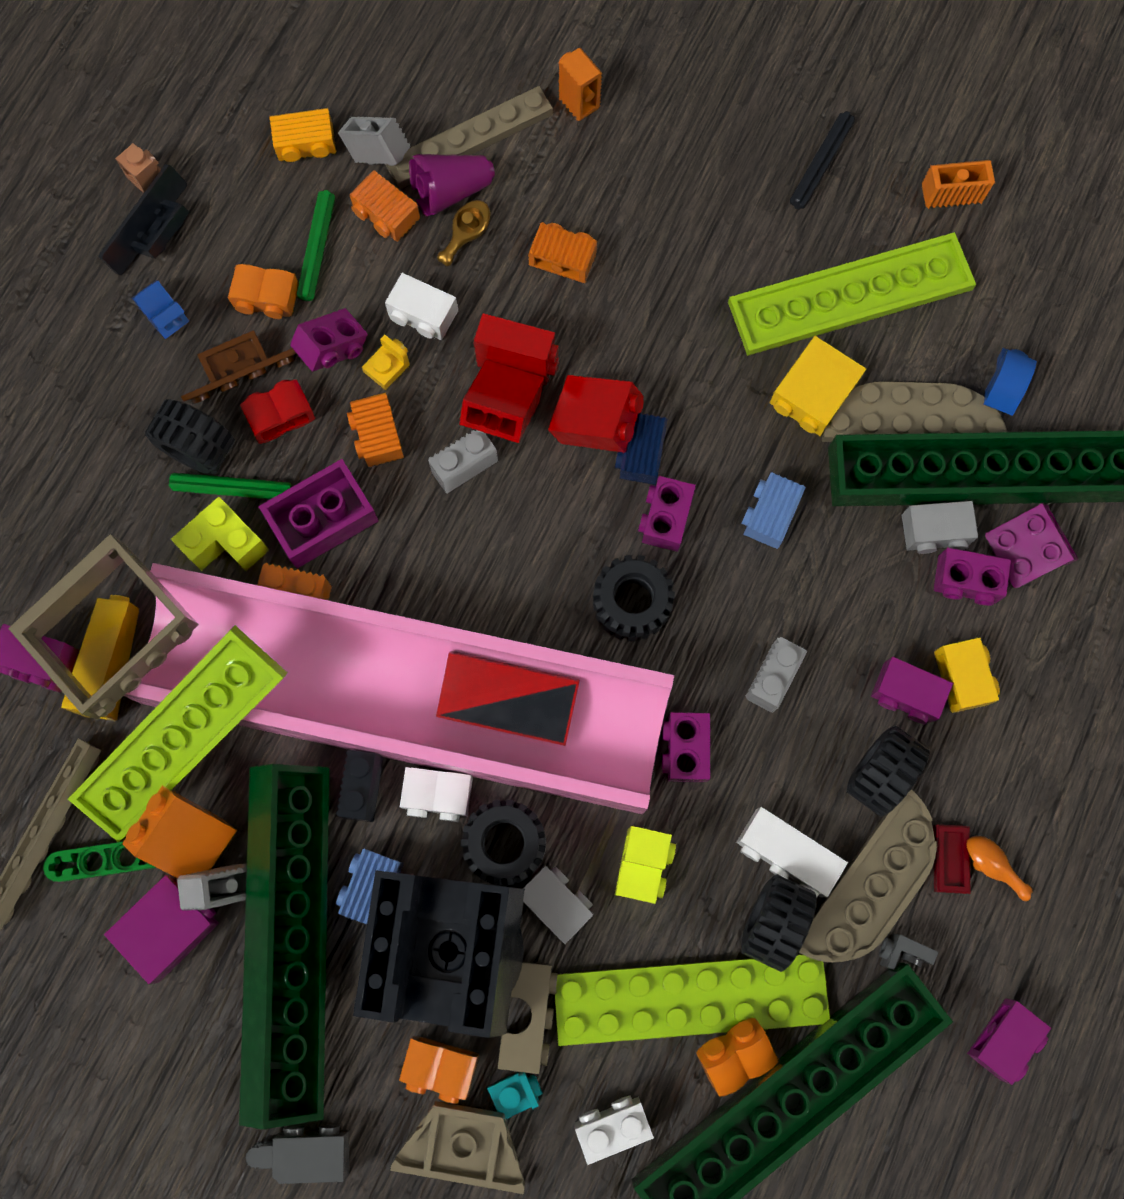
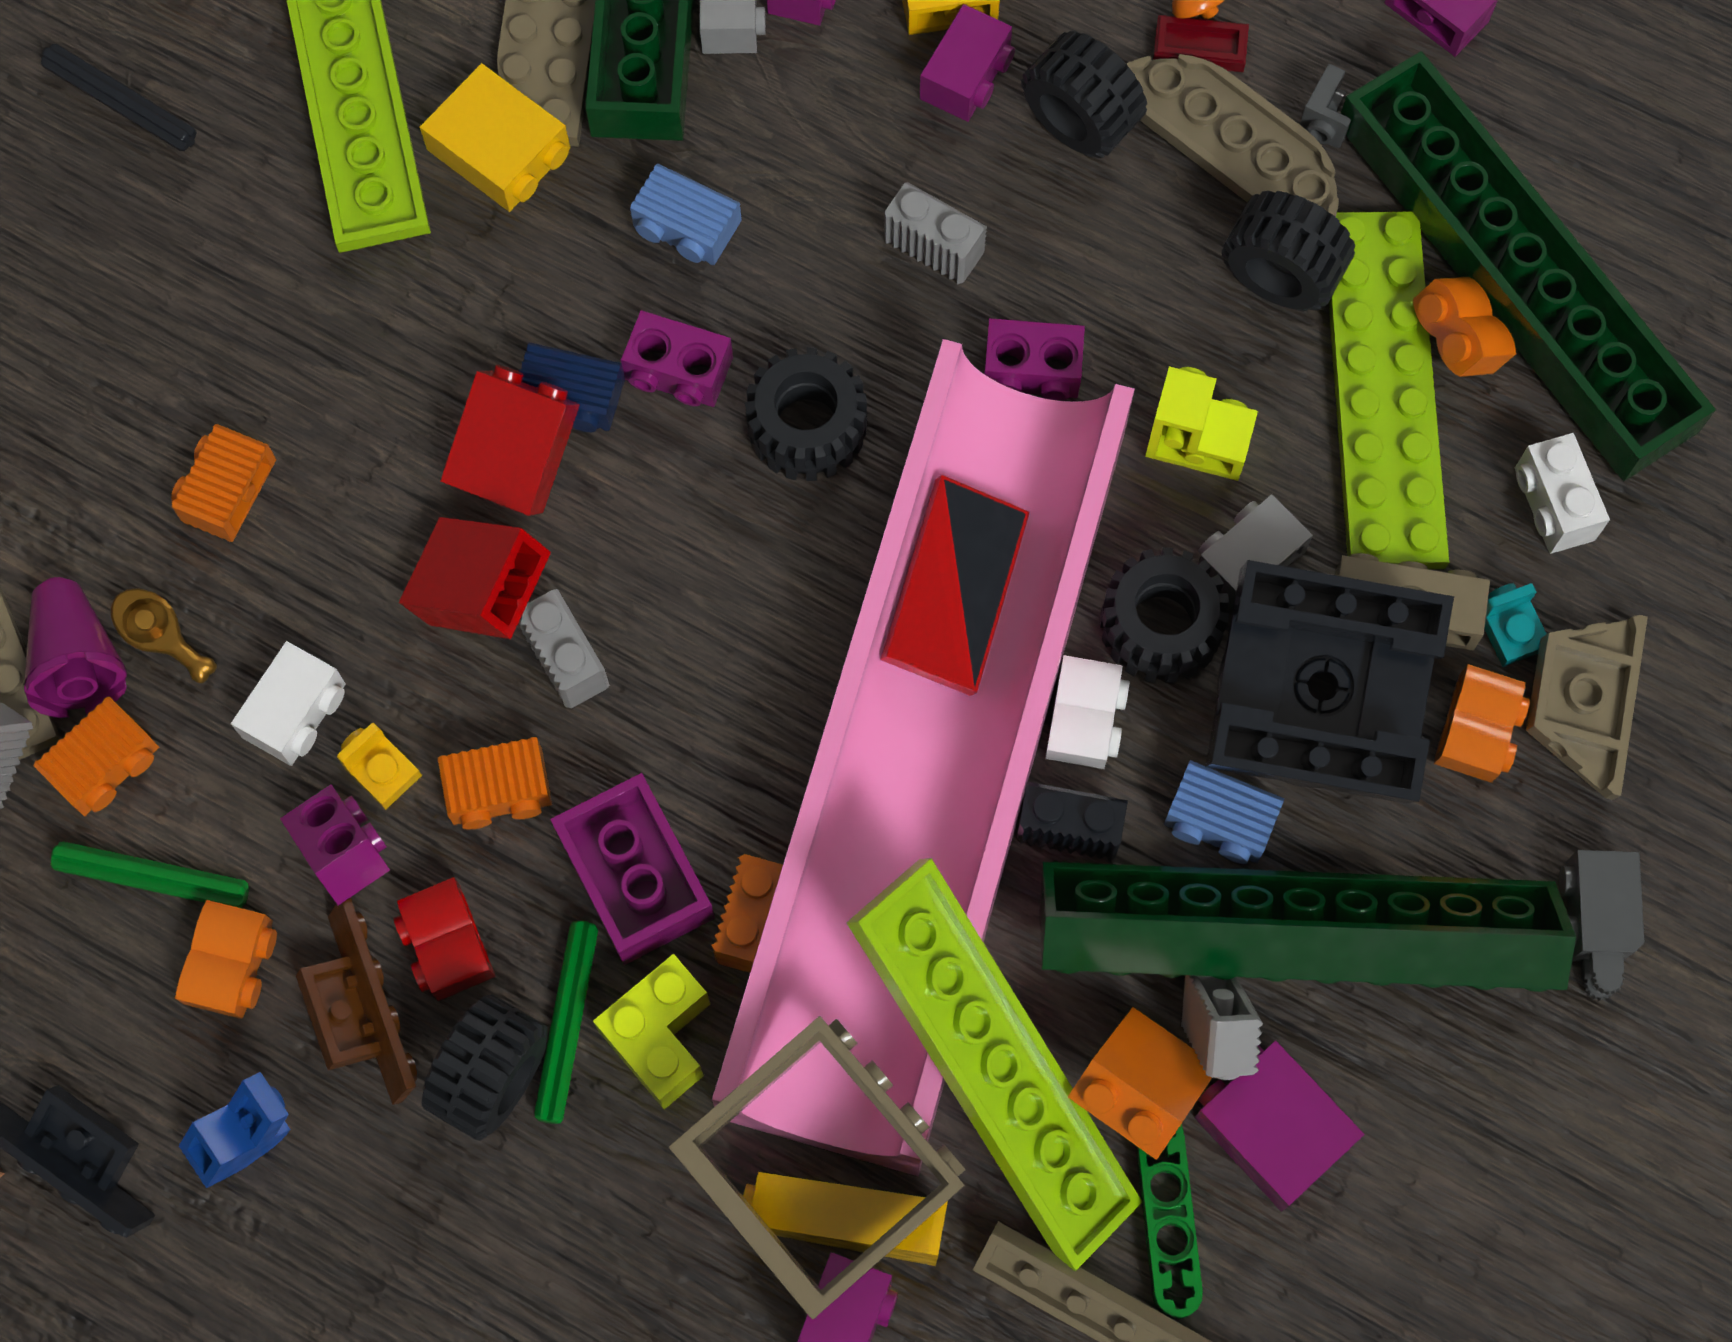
camera: 85 degrees left, 5 degrees down
(516, 346) = (386, 551): red brick -> none
(790, 853) = (1187, 239): white brick -> none

